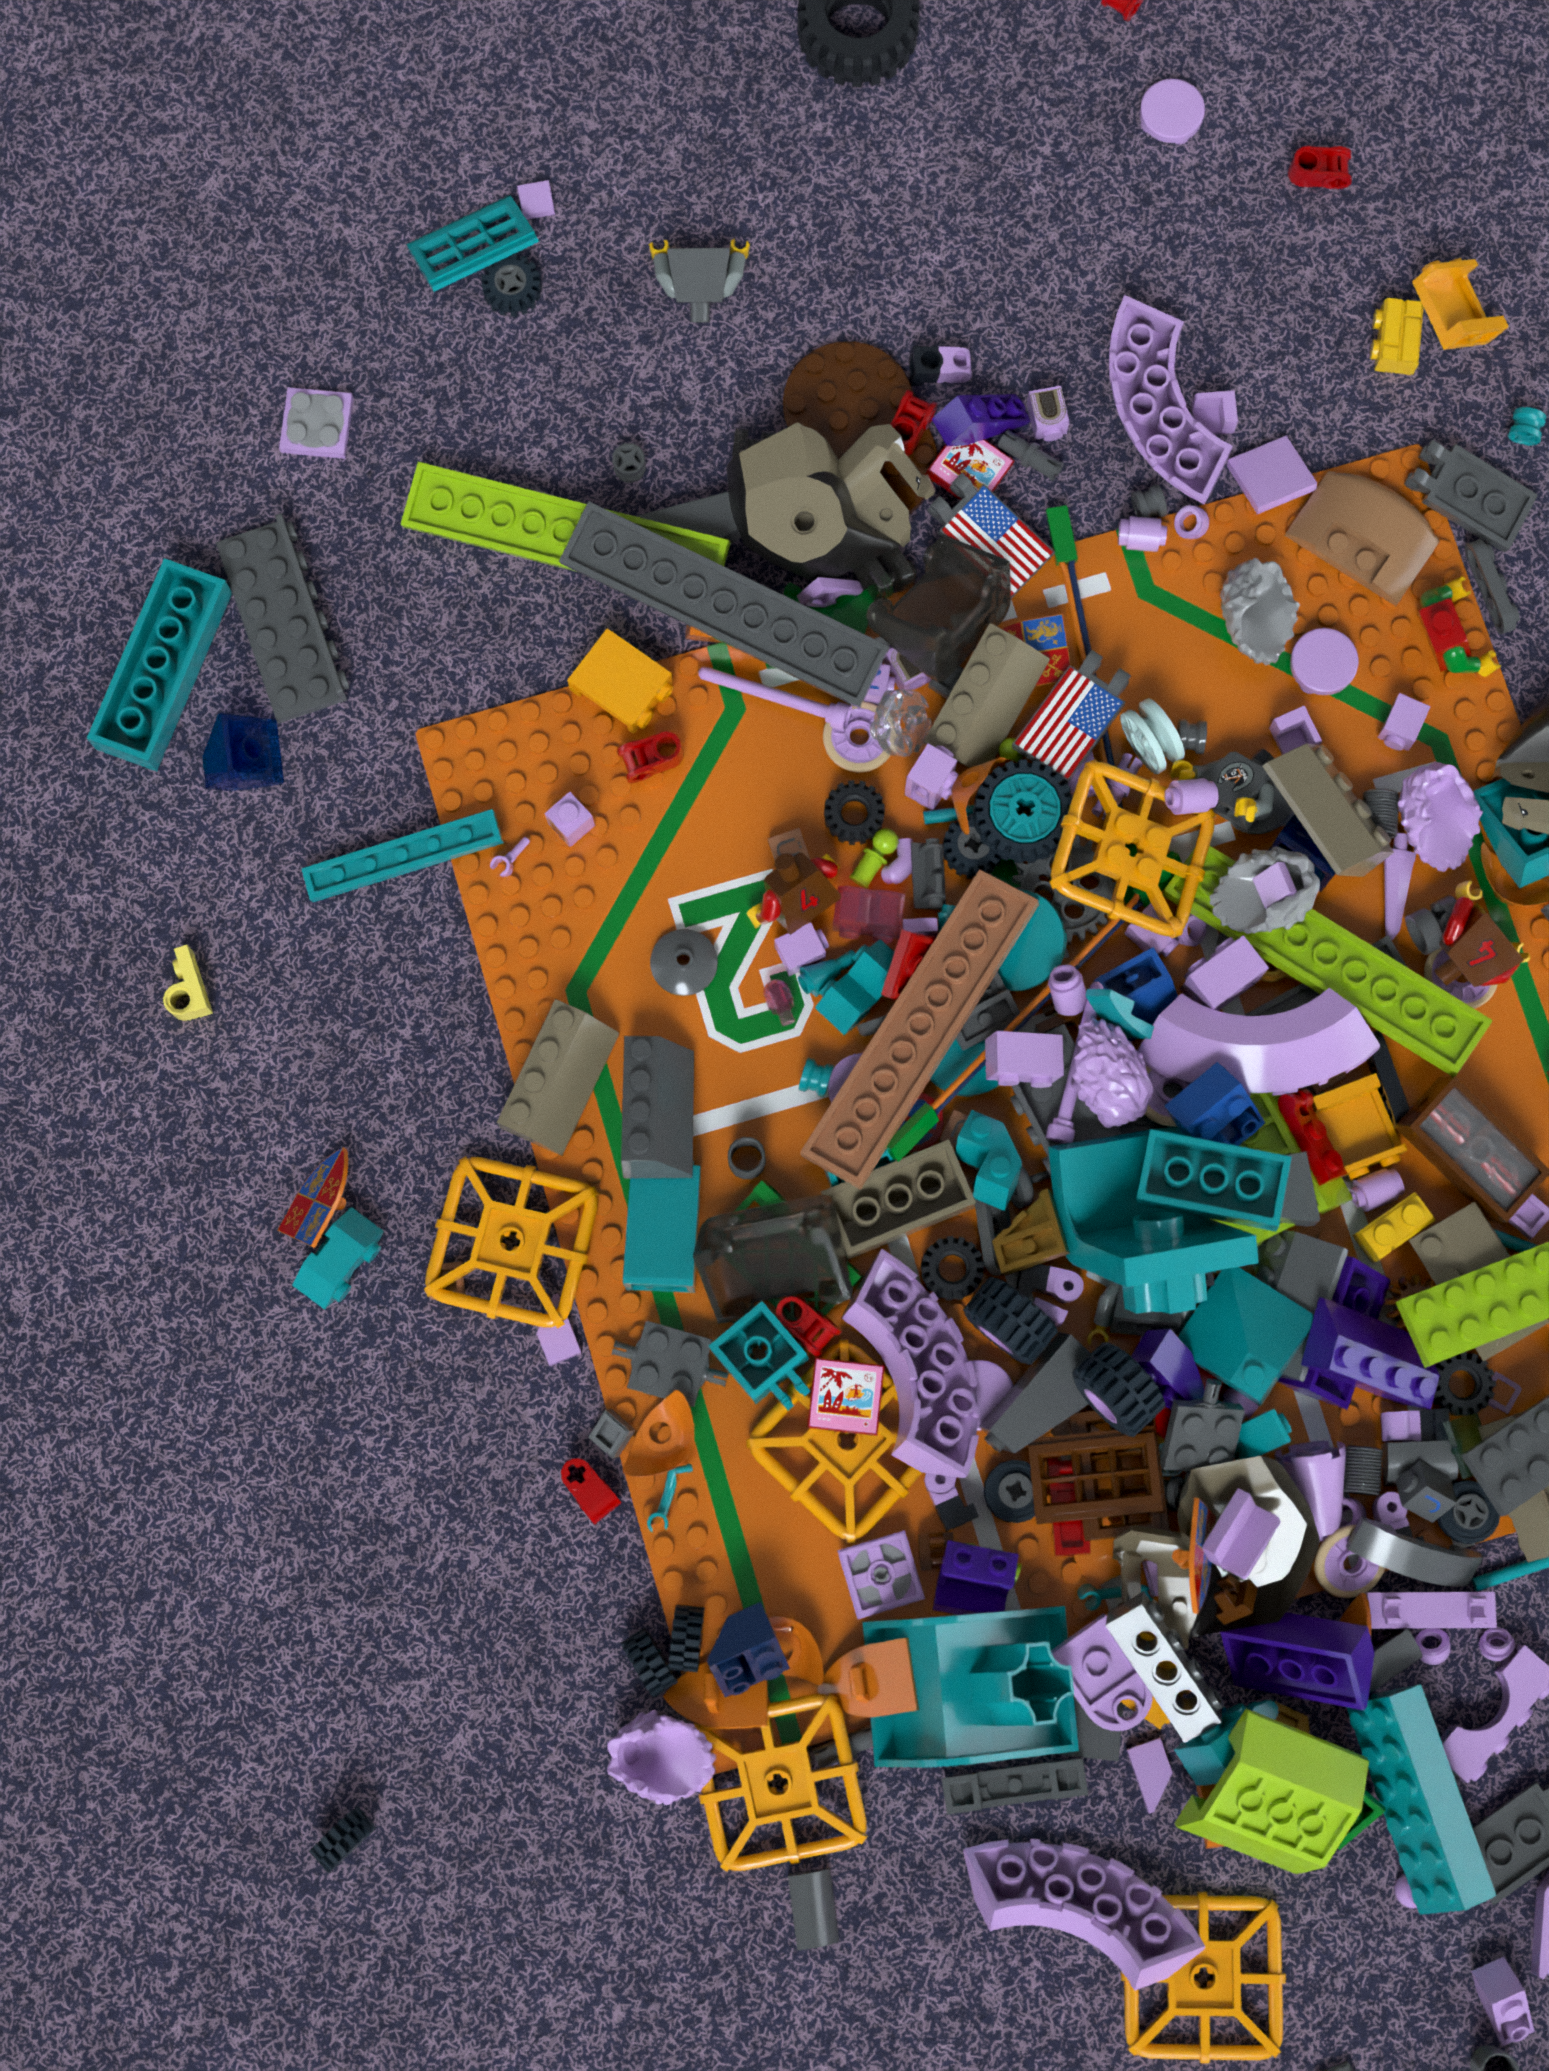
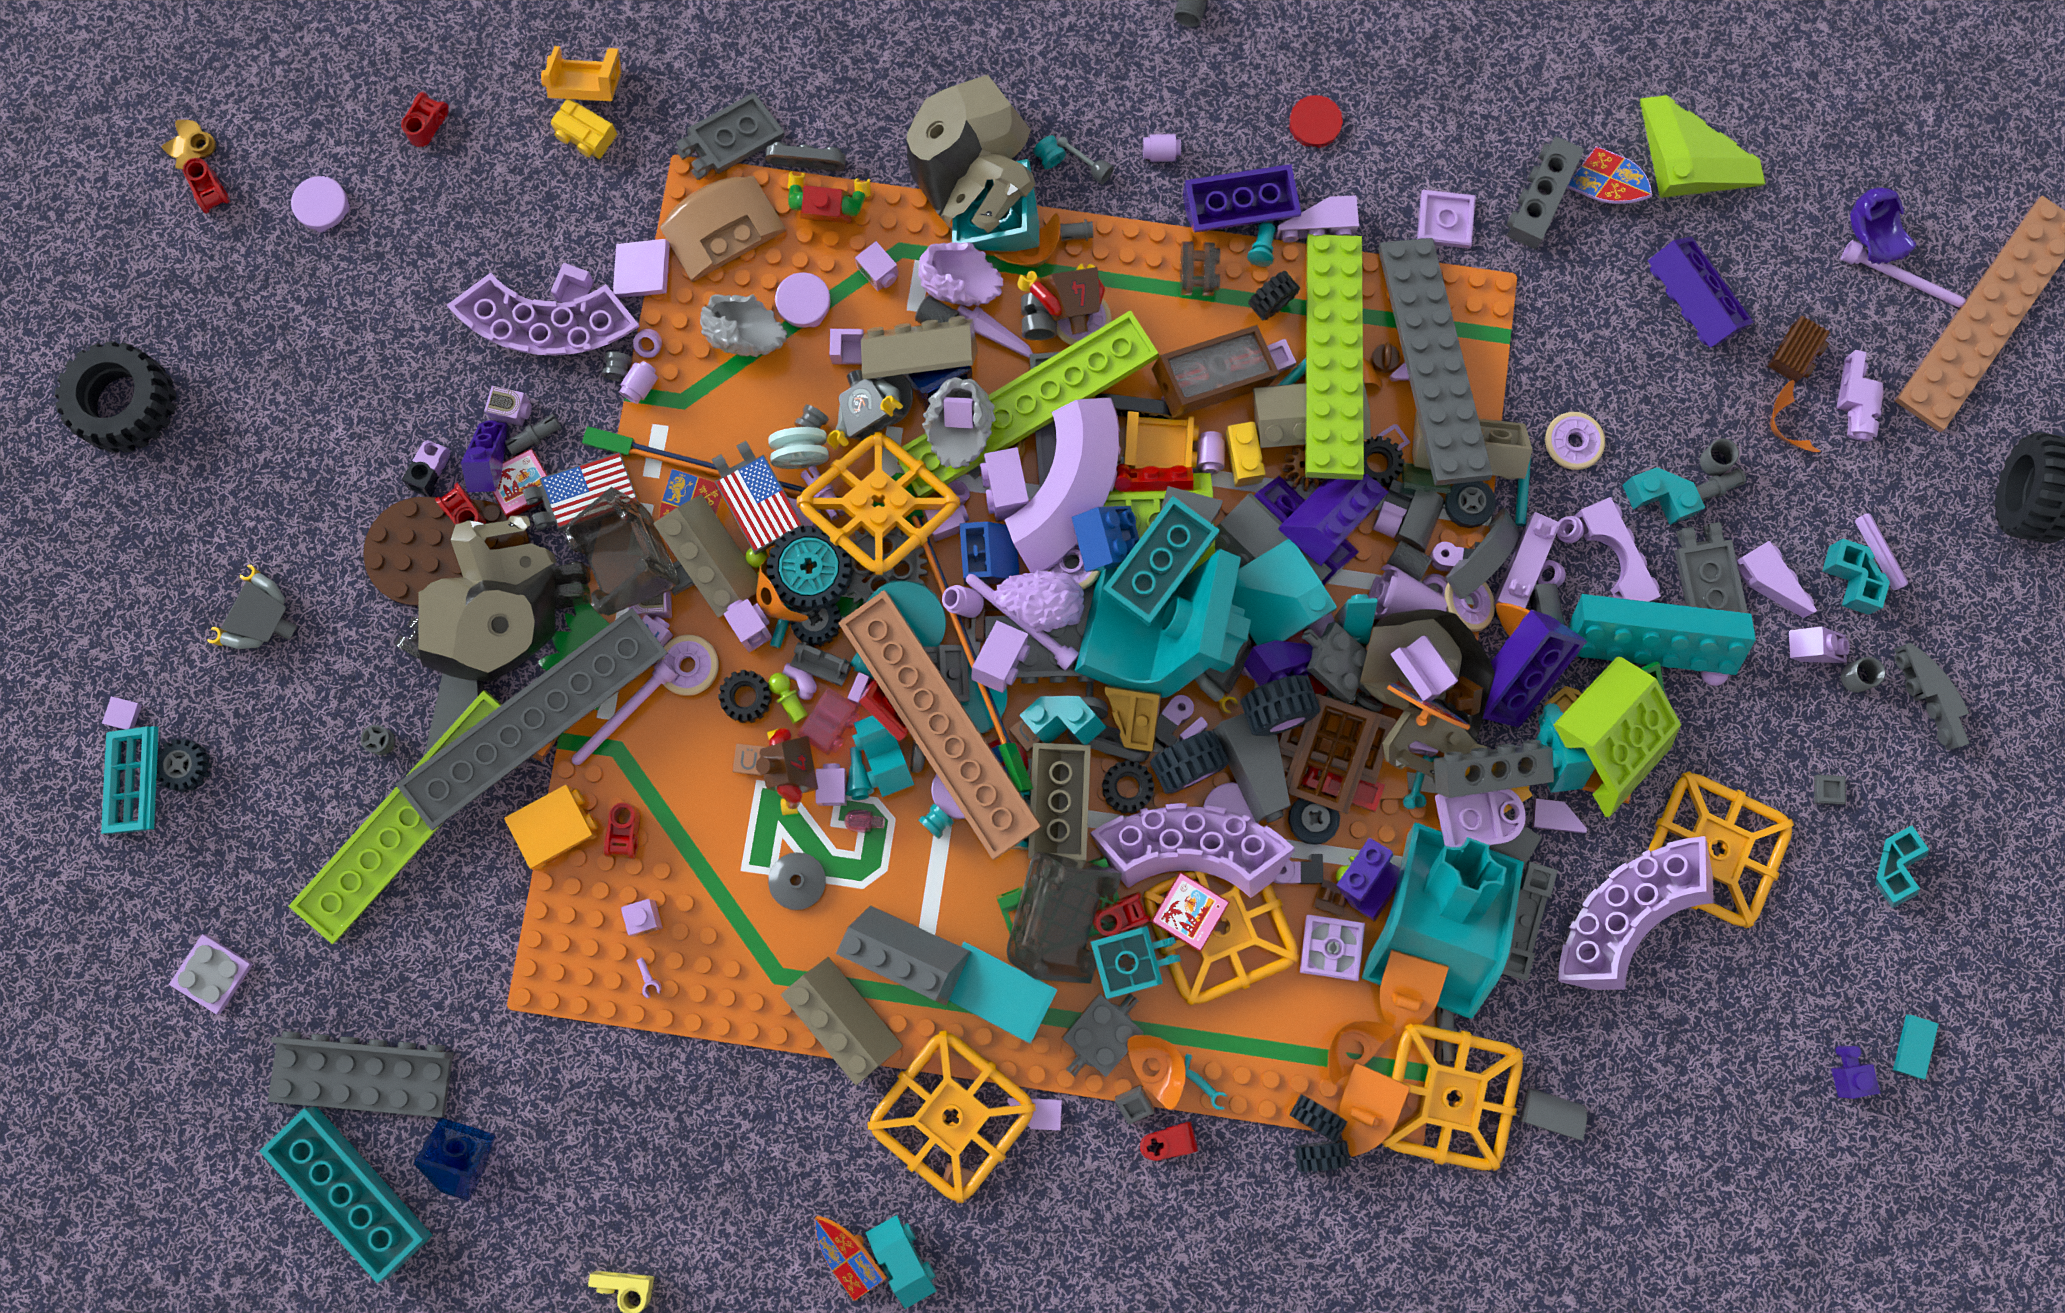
camera: 70 degrees left, 0 degrees up
(402, 855) = (603, 1065): teal plate -> none
(661, 1758) = (1399, 1179): lavender hair -> none
(746, 1141) = (963, 893): dark grey piece -> none
(746, 1652) = (1350, 1076): dark blue slope -> none
(824, 591) = (561, 637): lavender tile -> none
(887, 719) = (681, 623): clear plate -> none
(1117, 1010) = (997, 571): teal slope -> none
(1191, 796) = (860, 440): lavender brick -> none
(1426, 1491) = (1445, 524): dark grey brick -> none
(1527, 426) = (699, 73): teal wheel -> none

